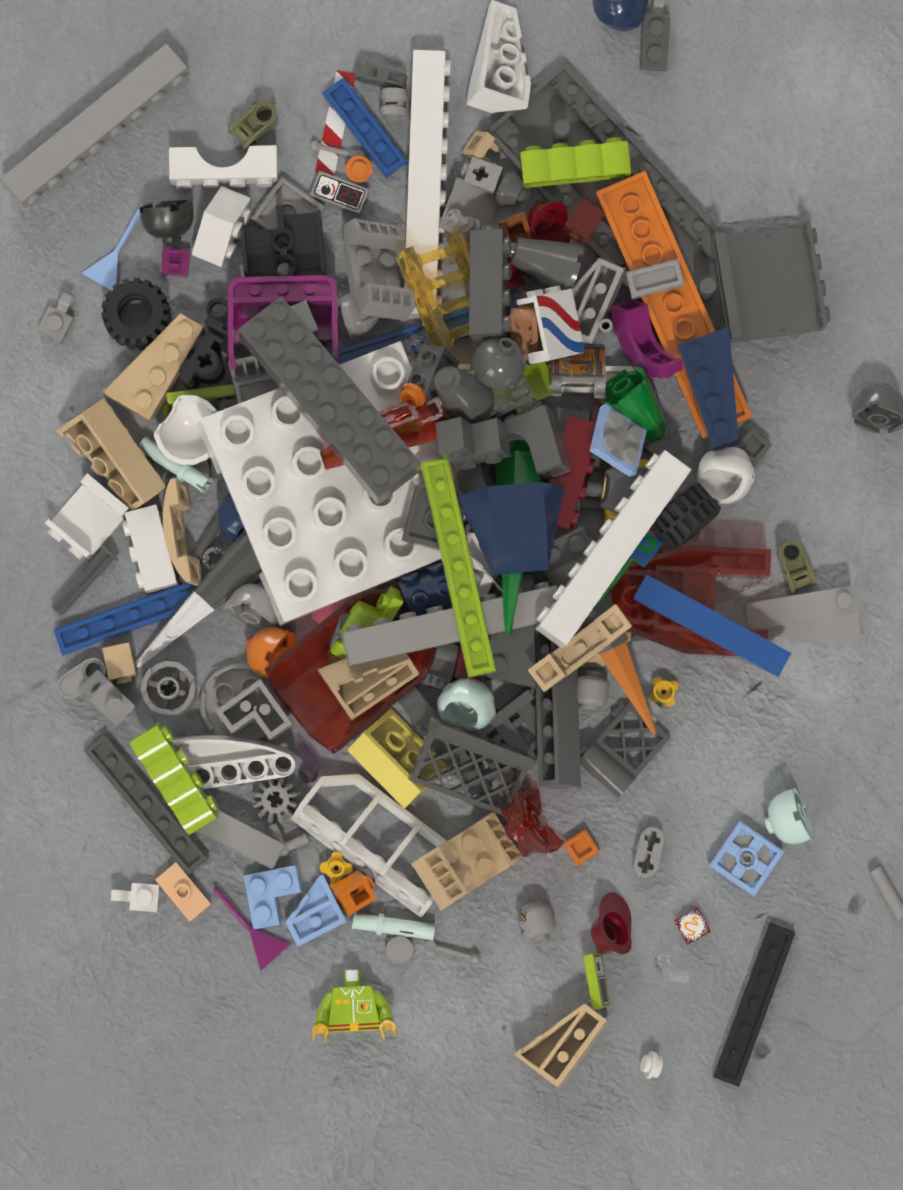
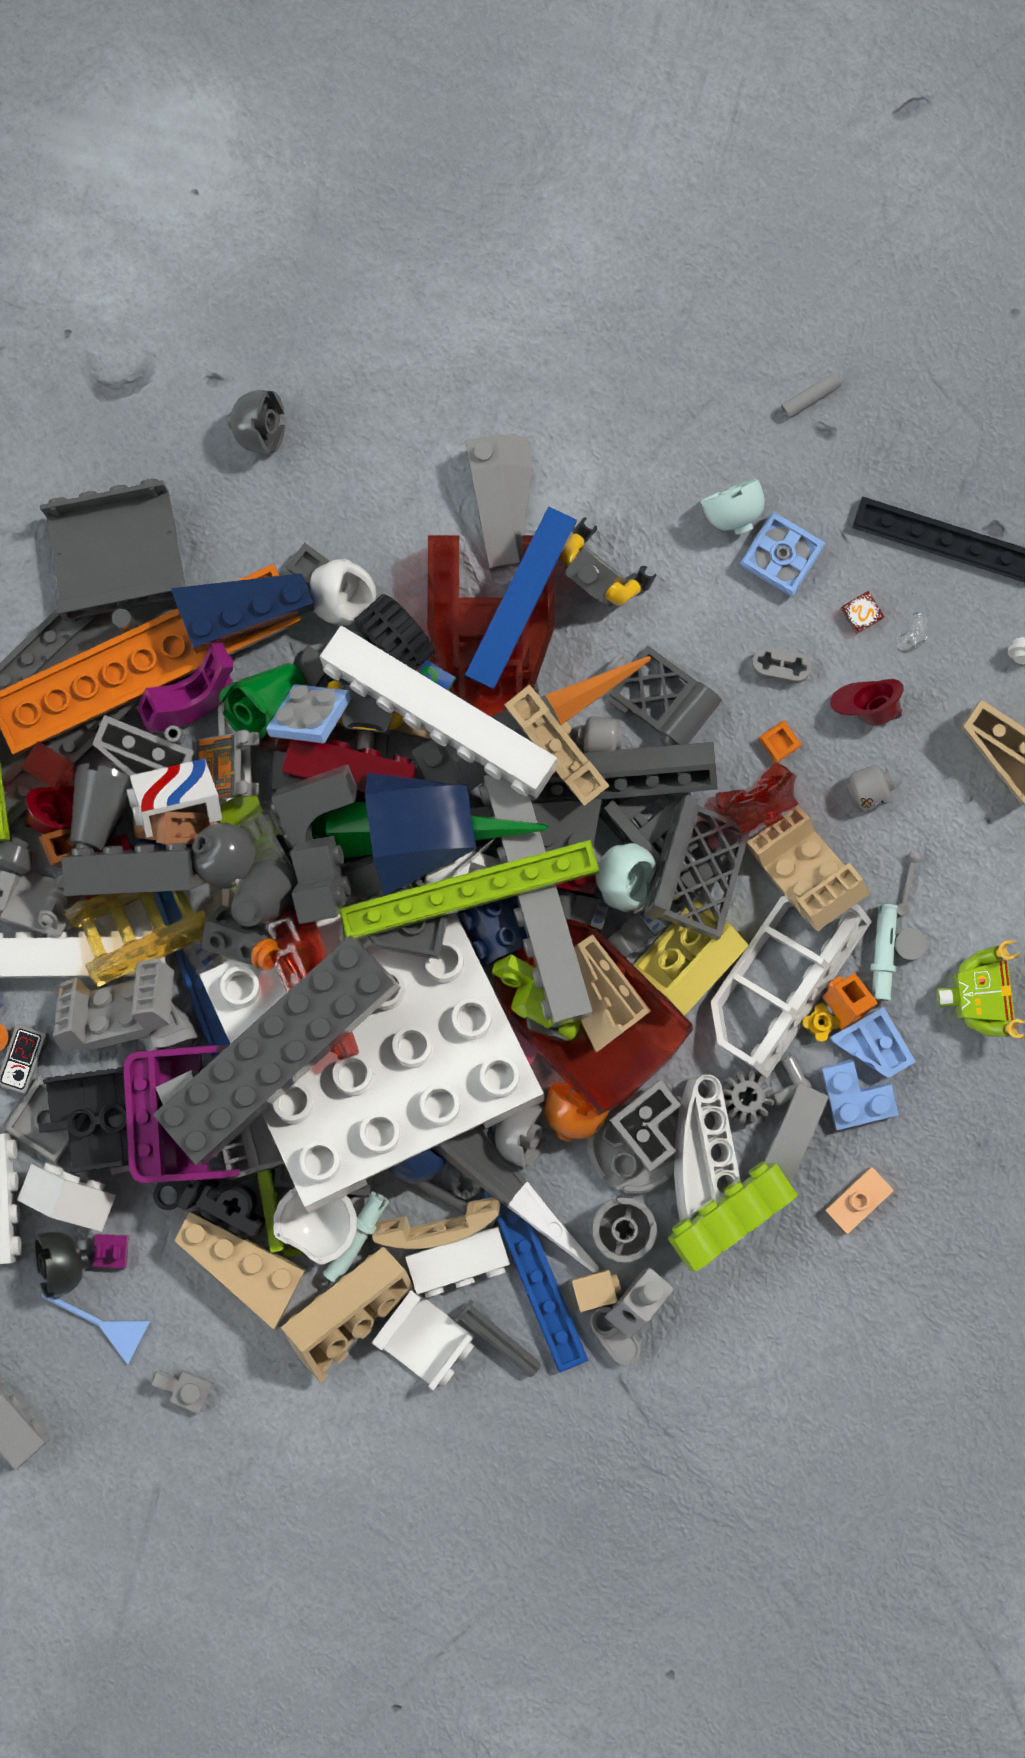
camera: 85 degrees left, 0 degrees up
(129, 292) = (148, 1298): black tyre -> none
(141, 897) = (868, 1248): white plate -> none
(146, 804) = (758, 1250): dark grey tile -> none
(265, 945) = (915, 1100): magenta piece -> none
(310, 764) = (701, 1058): clear purple arm -> none
(596, 981) = (933, 716): lime tile -> none
(654, 279) = (115, 680): light grey tile -> none
(670, 687) = (591, 647): yellow plate -> none
(731, 695) = (595, 574): none -> torso
(795, 568) = (446, 510): olive piece -> none

